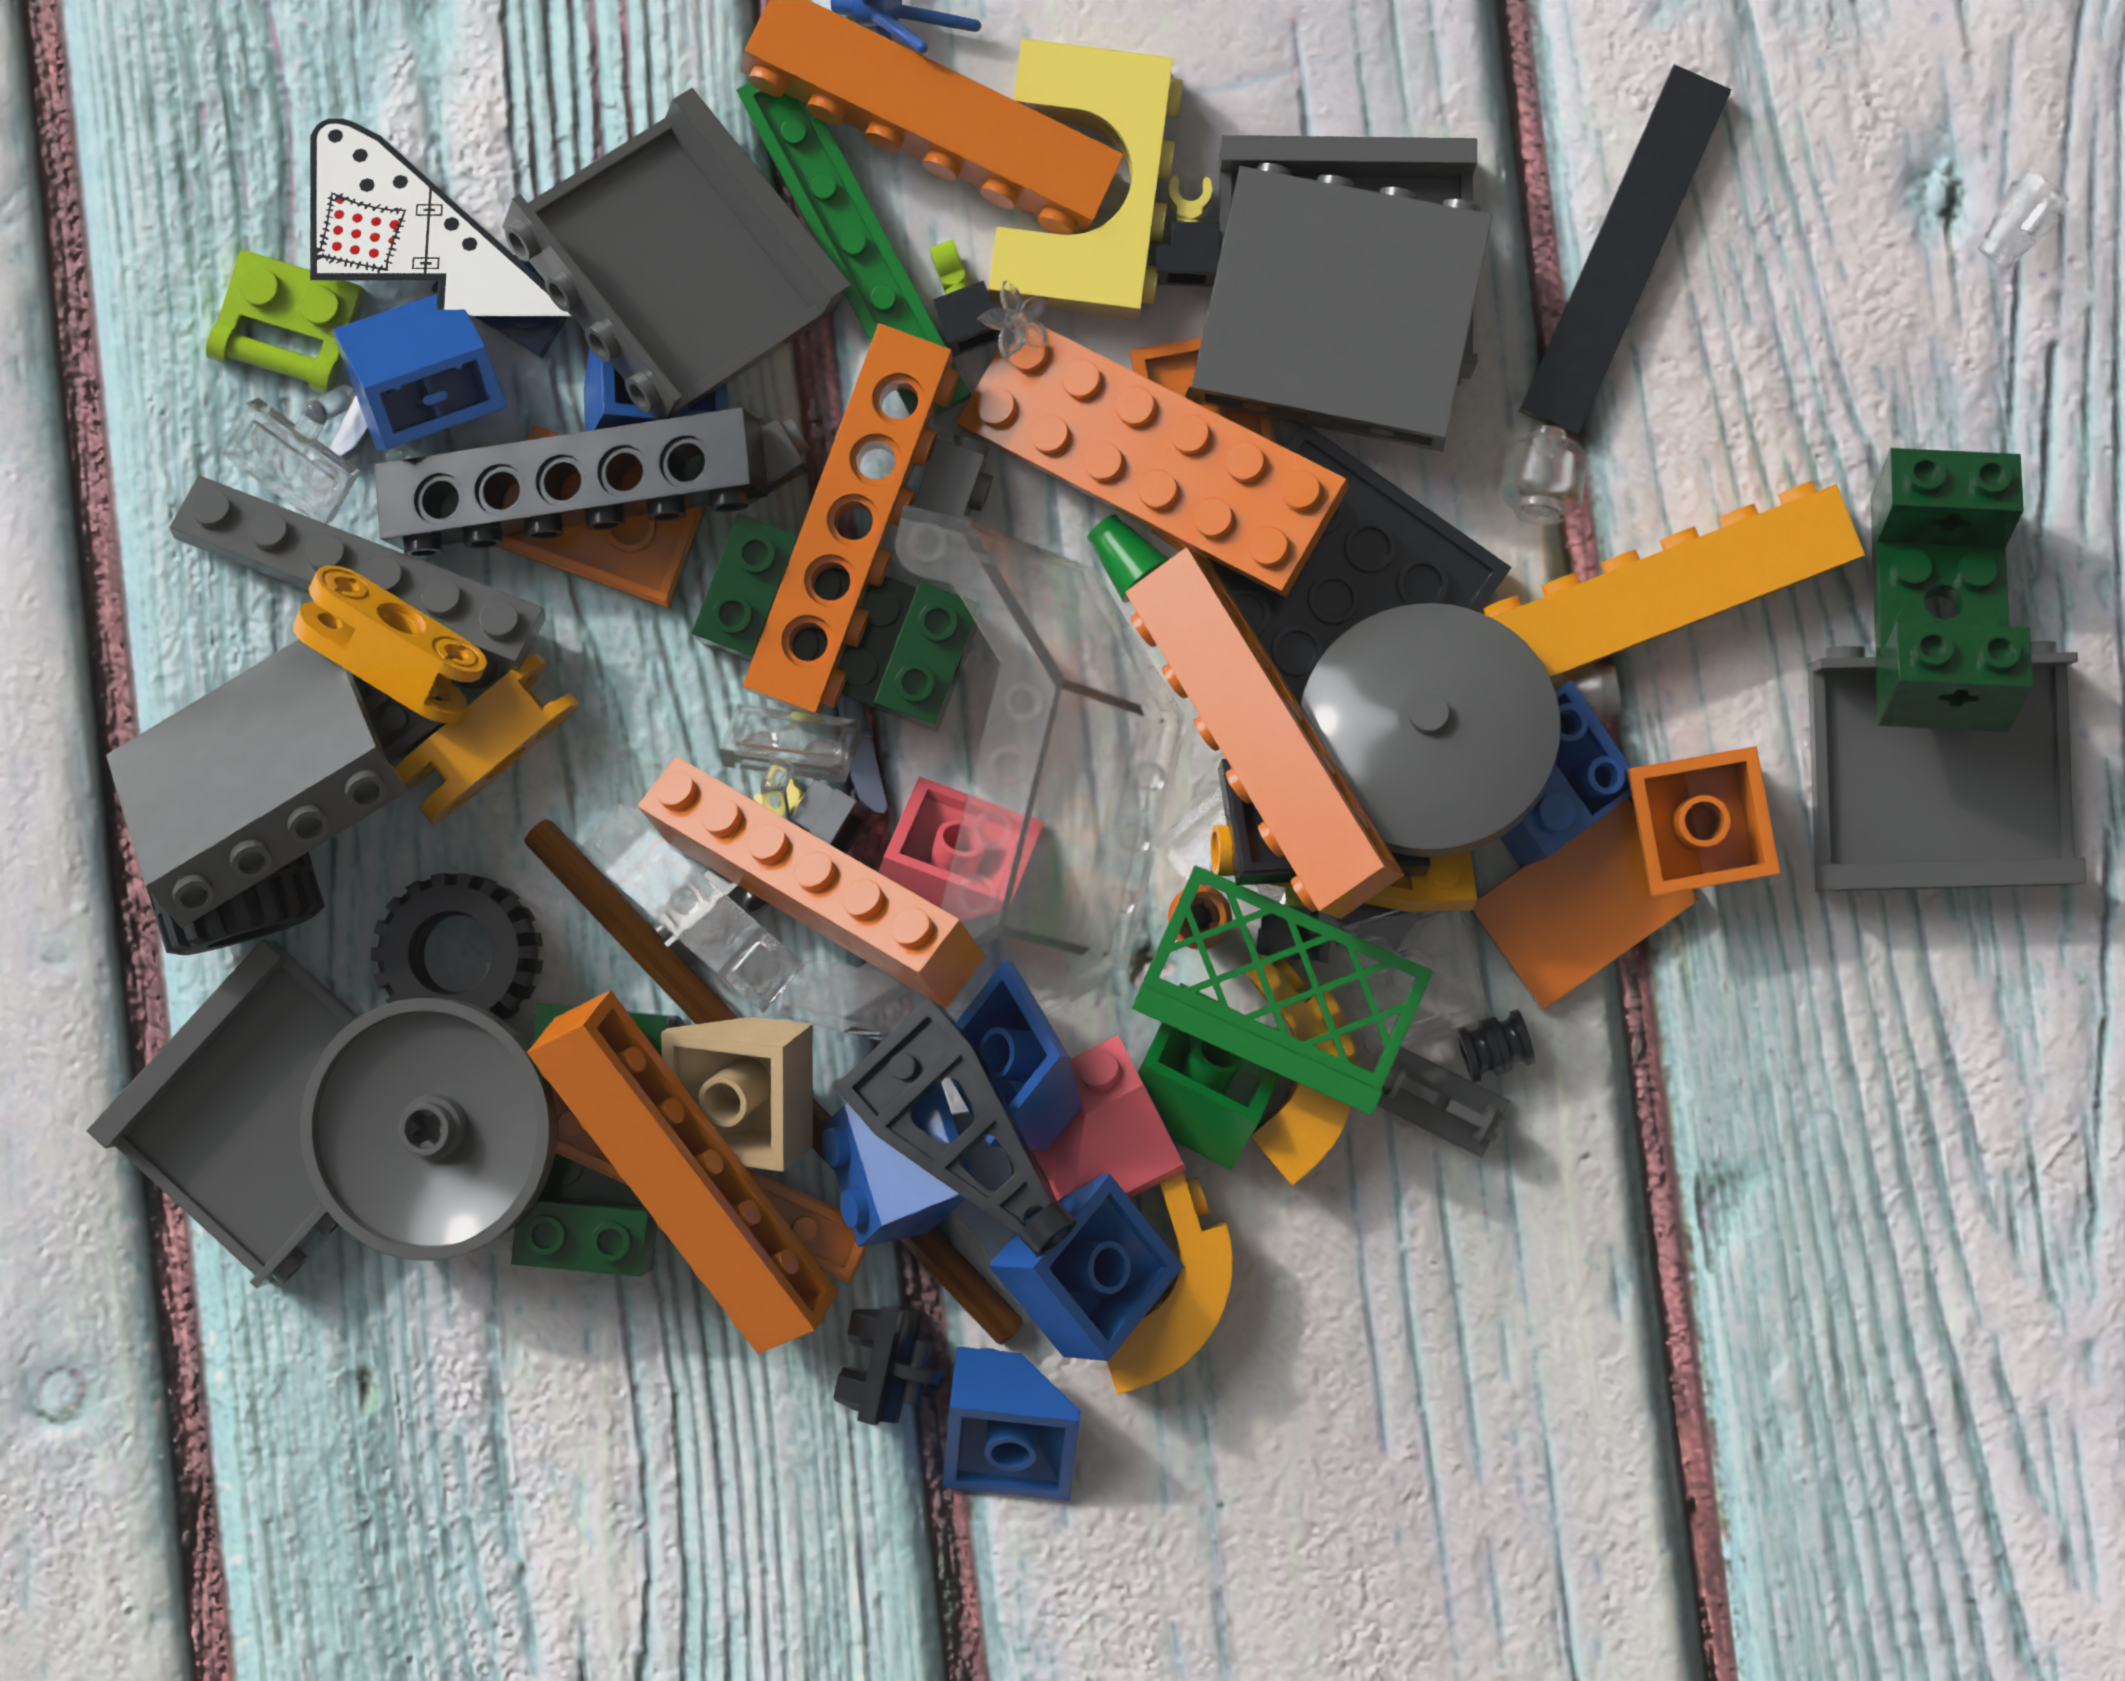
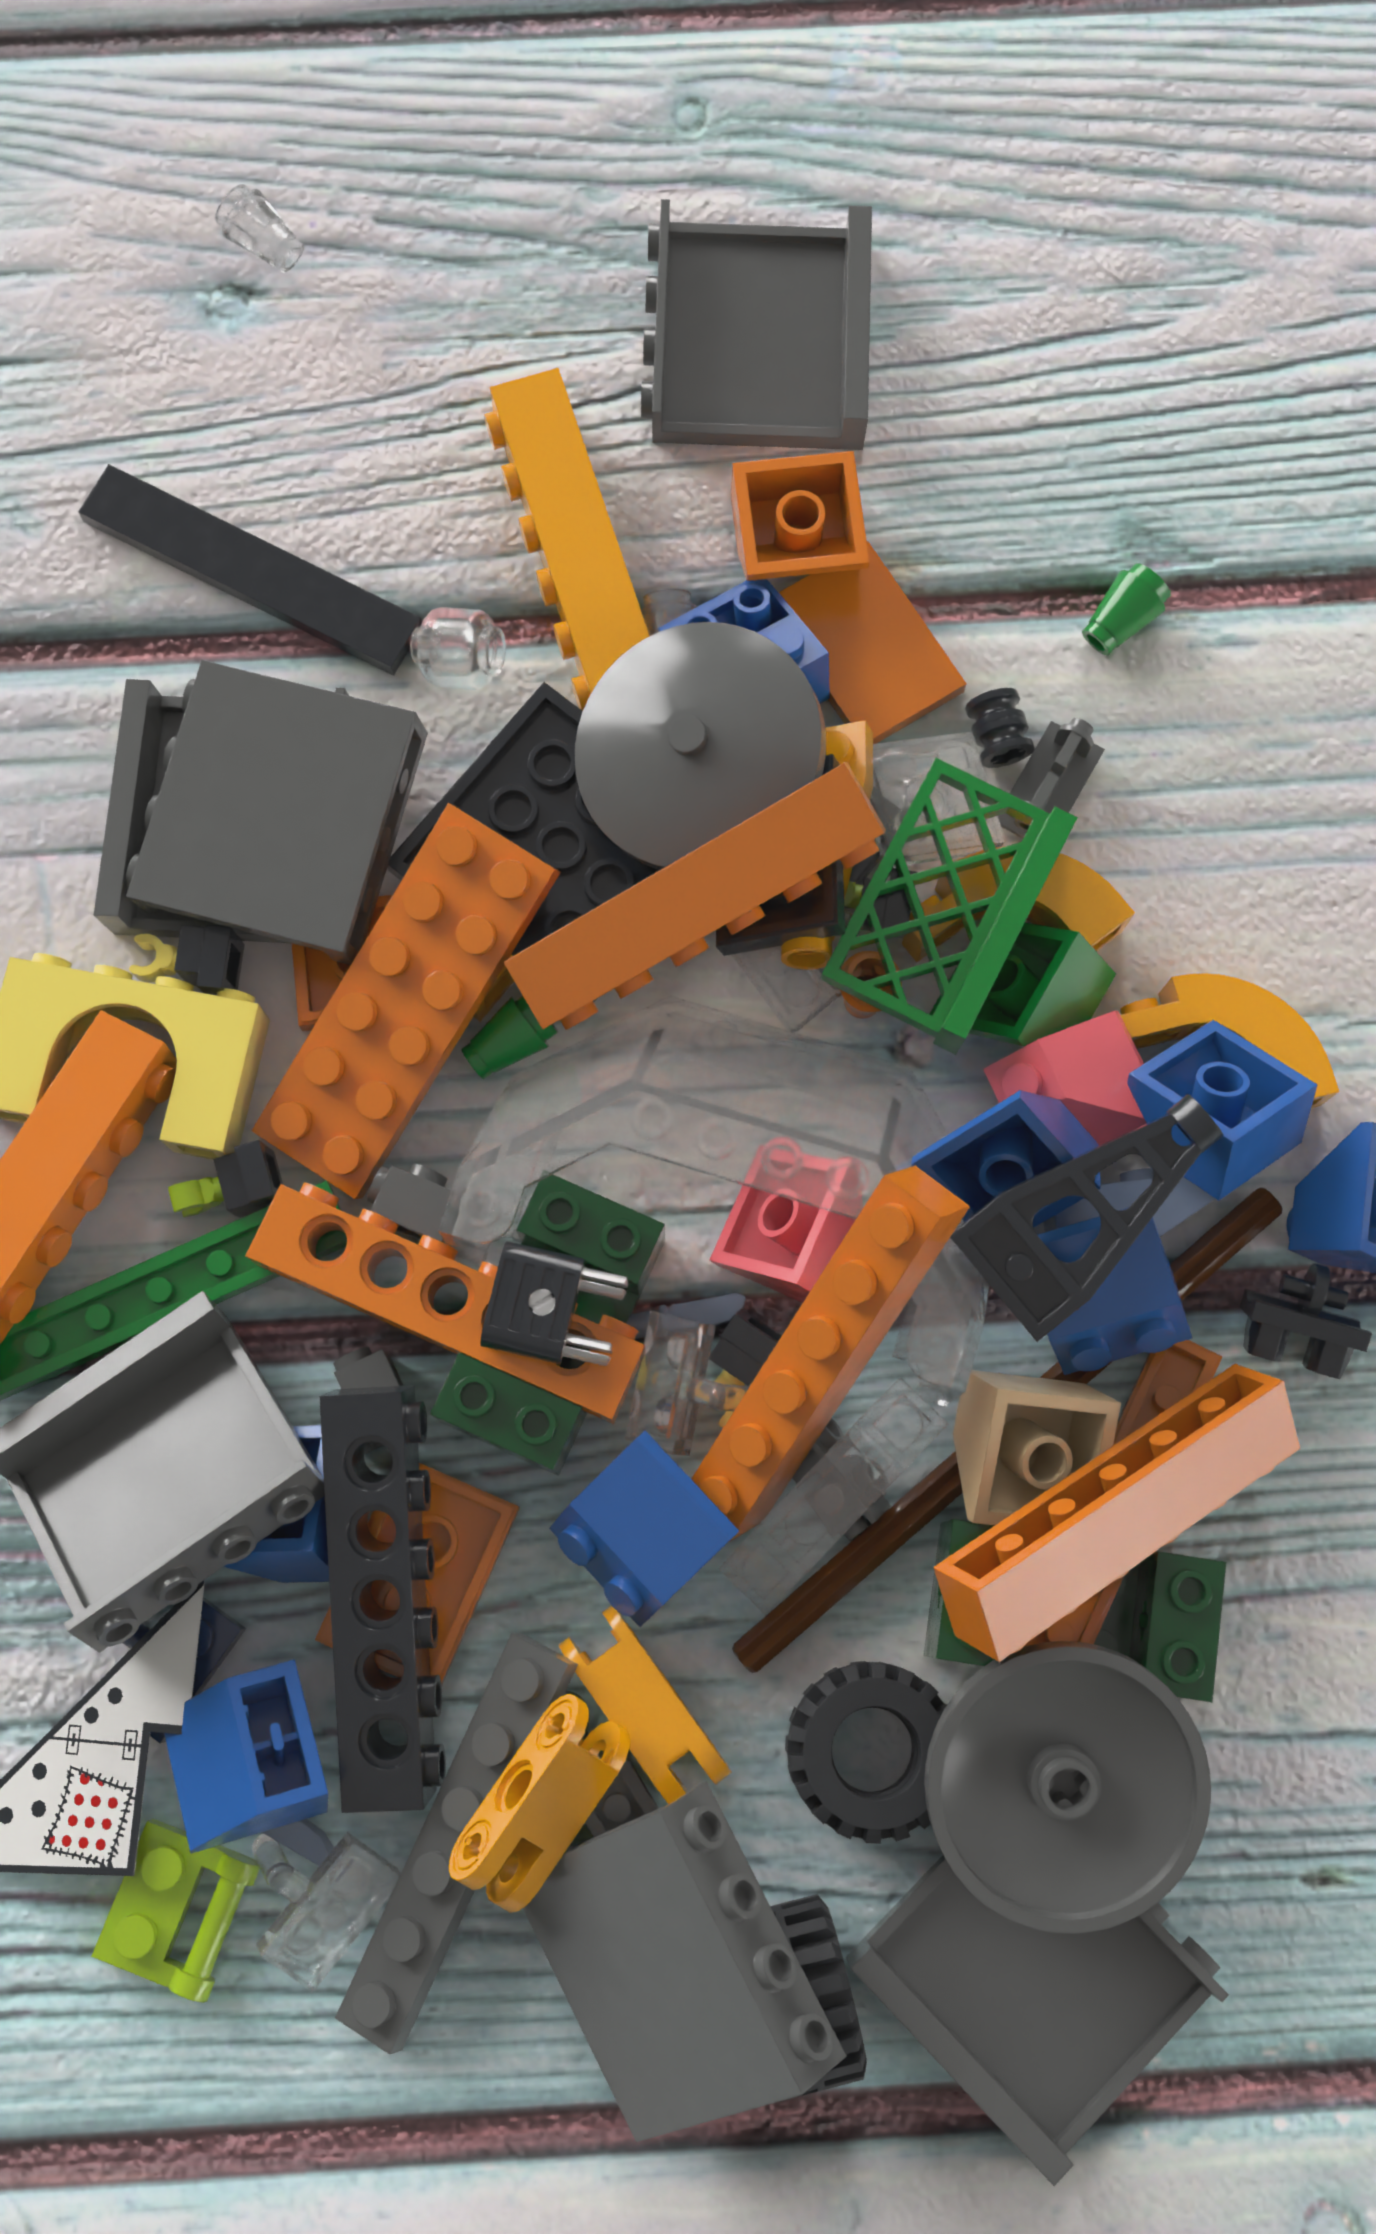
camera: 90 degrees left, 10 degrees down
(643, 723) = (642, 1529): none -> blue slope
(844, 605) = (537, 1301): none -> black piece
(1017, 320) = (258, 1123): clear plant -> none
(1639, 1176) = (1126, 608): none -> green cone
(1945, 534) = (543, 308): dark green plate -> none

